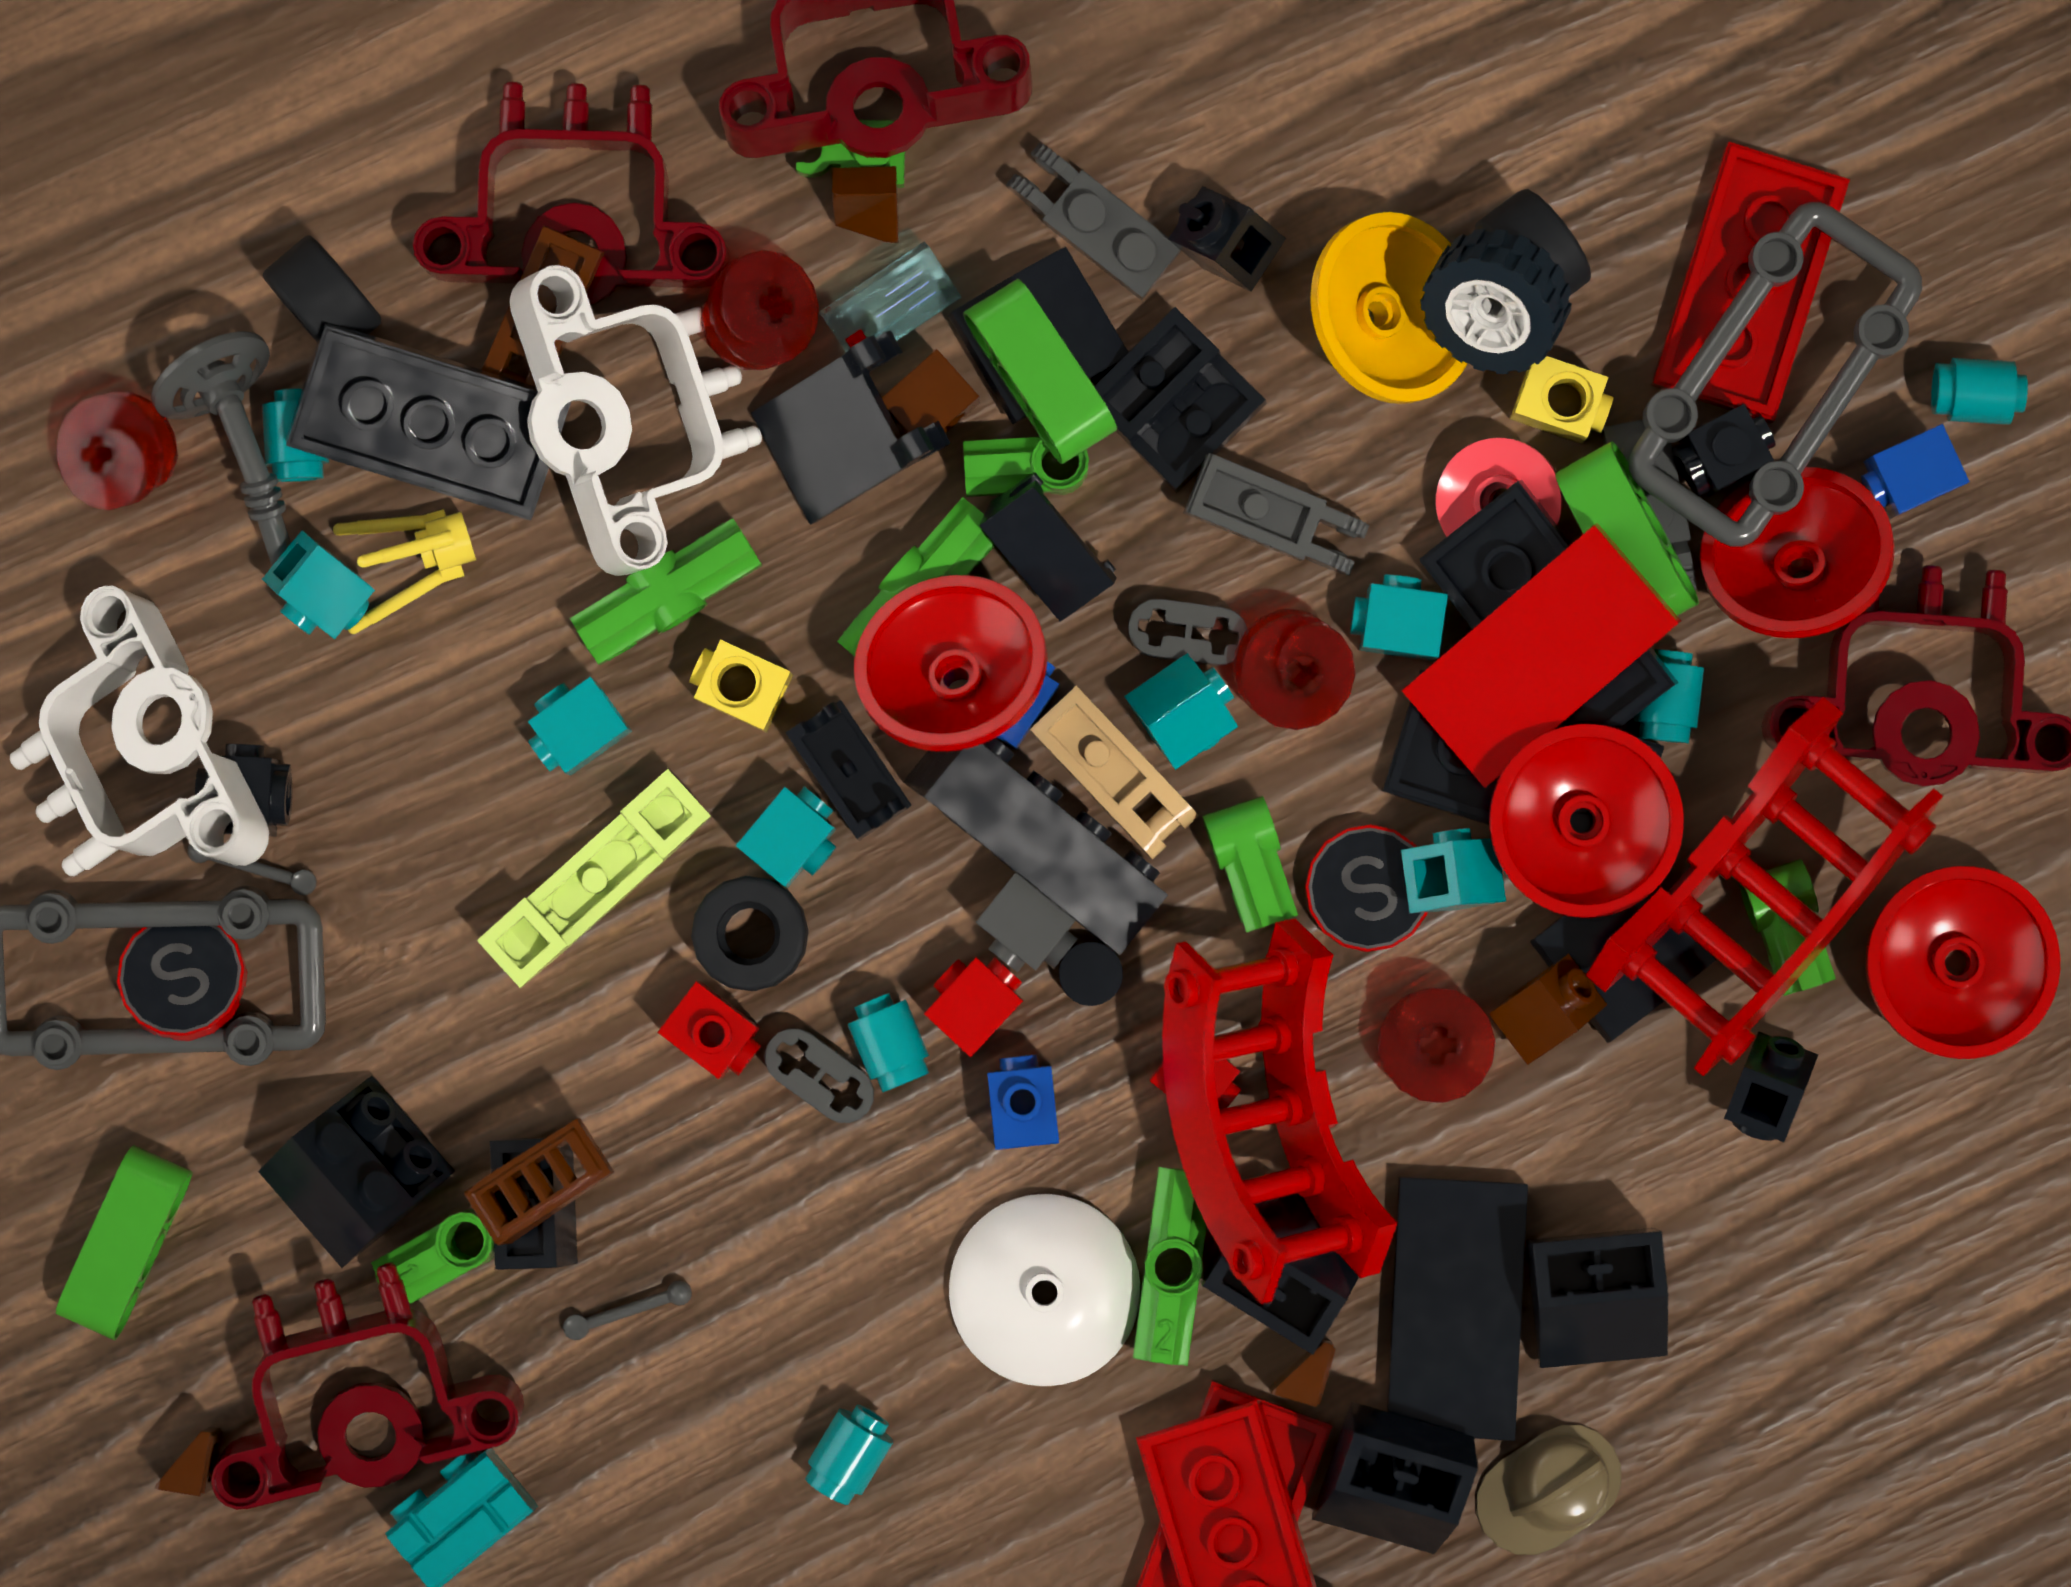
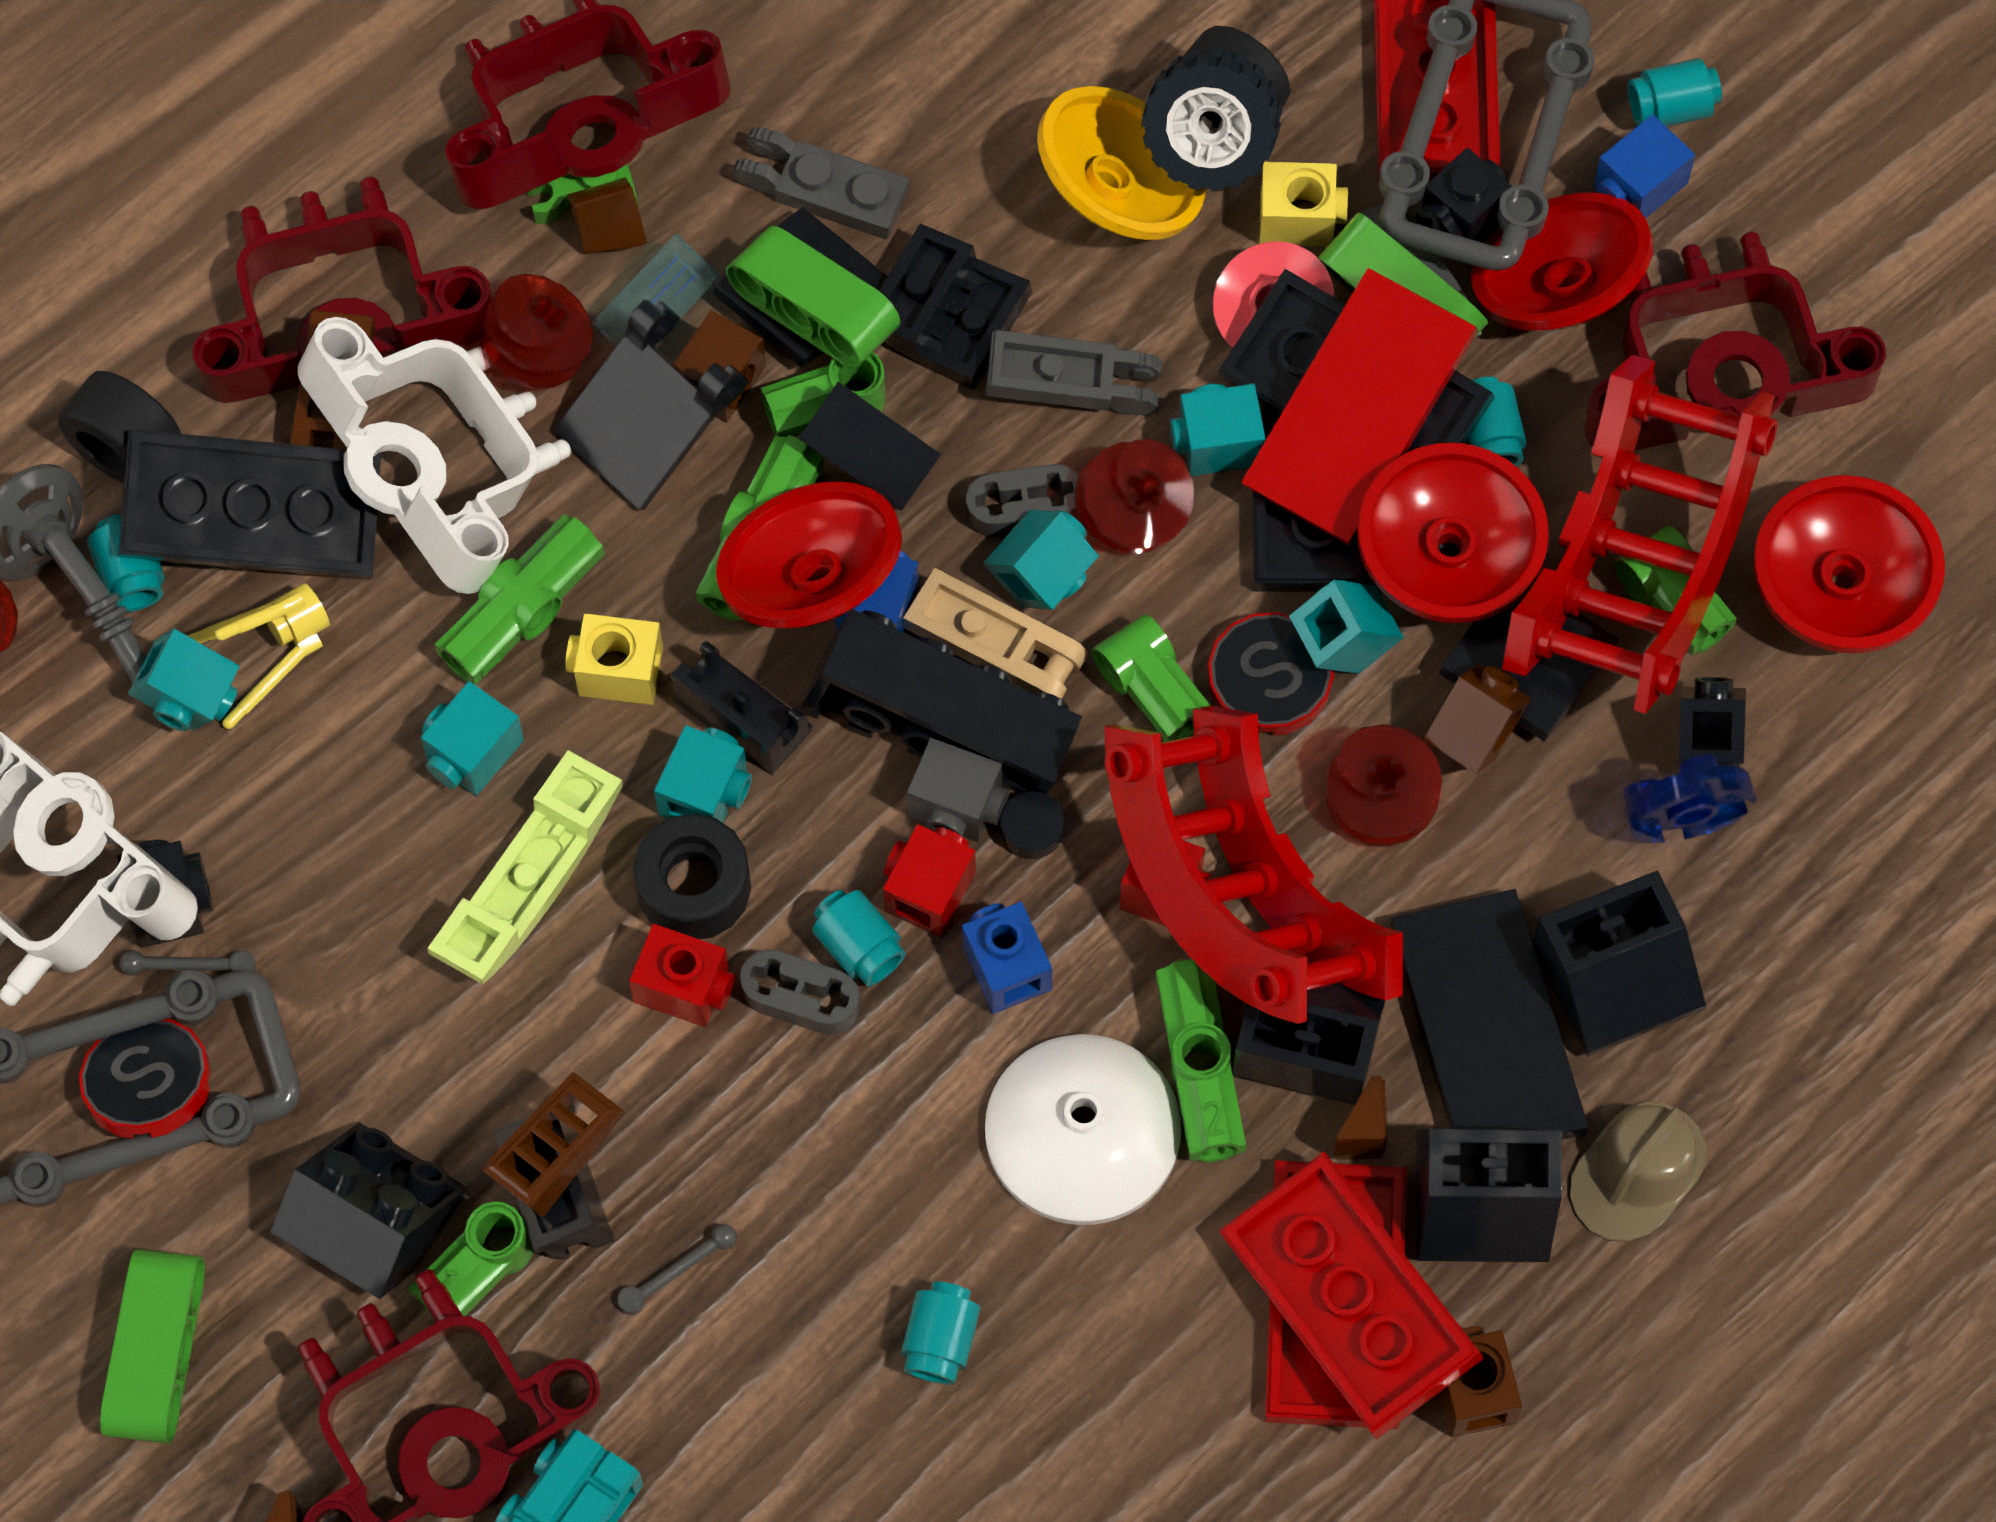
camera: 20 degrees left, 20 degrees down
(1226, 238) = (947, 150): black brick -> none
(1720, 1158) = (1696, 799): none -> clear blue plate

